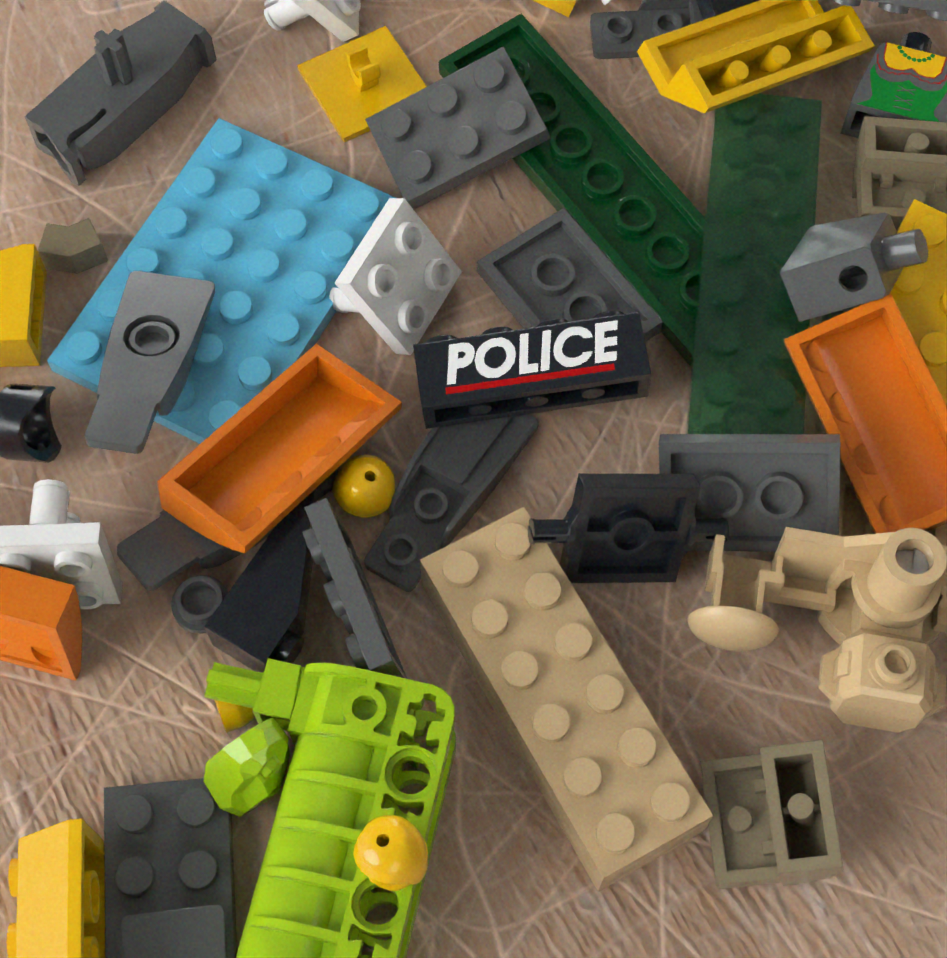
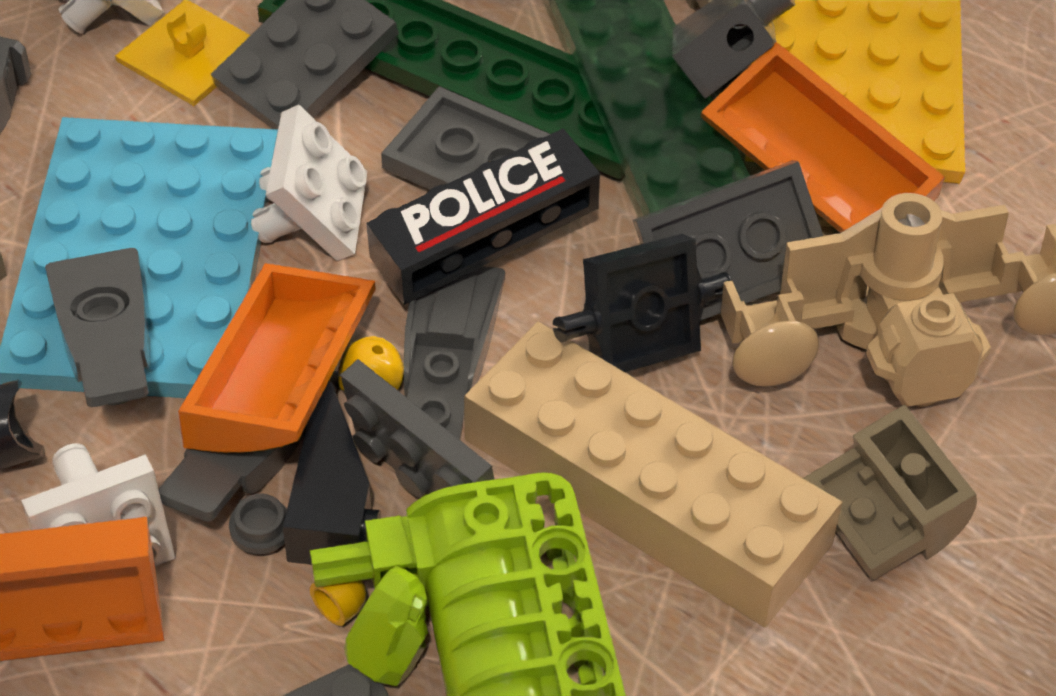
camera: 25 degrees left, 15 degrees down
(391, 852) = (581, 606): yellow piece -> none

